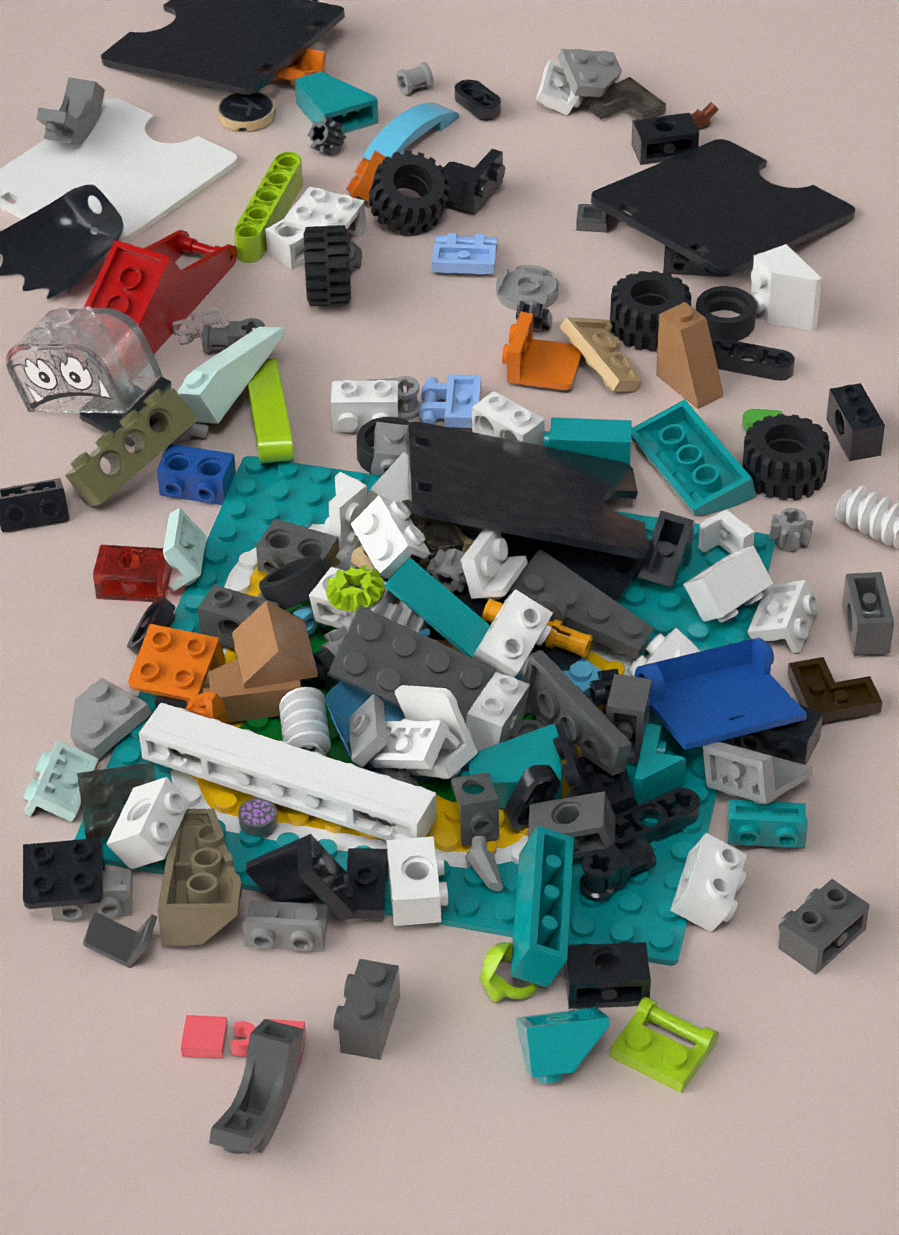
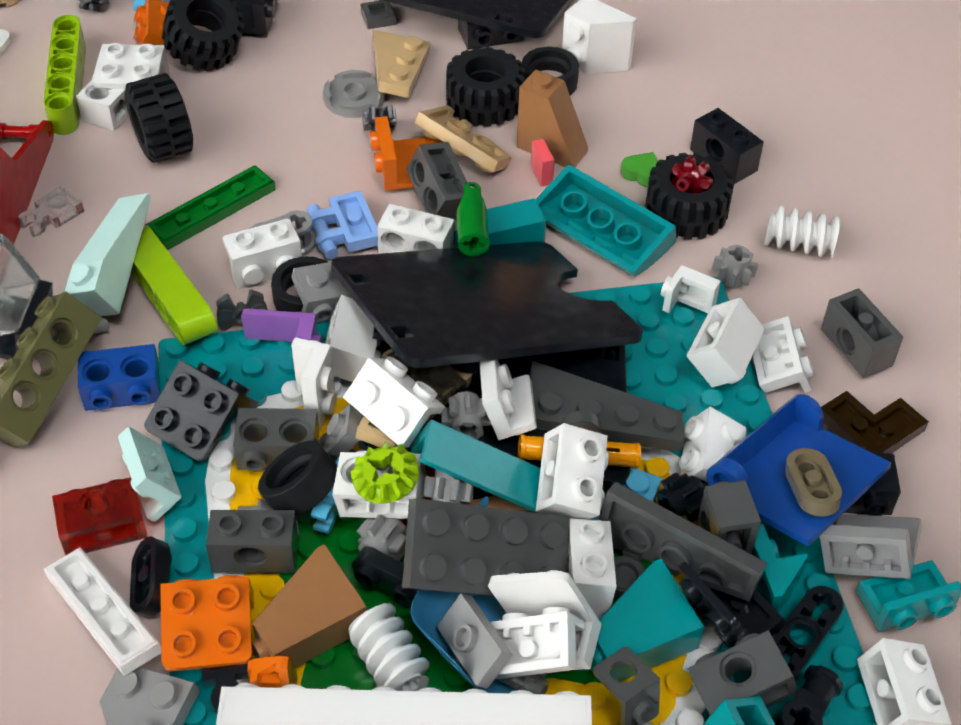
camera: 25 degrees left, 5 degrees up
(103, 638) = (103, 611): none -> white tile
(224, 337) = (89, 216): dark grey connector -> none
(244, 512) = (196, 409): none -> black bracket
(273, 648) = (315, 571): medium nougat slope -> none
(326, 452) = (229, 314): none -> dark grey piece
(333, 461) = (279, 325): none -> medium lavender bracket
(343, 357) = (211, 206): none -> green tile
(464, 254) = (279, 75): light blue plate -> none
(536, 785) = (689, 646): black plate -> none
(552, 382) = (437, 179): none -> dark grey brick
(556, 423) = (472, 222): none -> green piece
(584, 268) = (398, 61): none -> tan wing
(666, 390) = (542, 162): none -> coral tile
(668, 549) = (650, 310): black slope -> none
(718, 702) = (813, 482): none -> dark tan plate
(777, 365) = (612, 109): black beam -> none
(785, 436) = (691, 177): none -> dark red plant

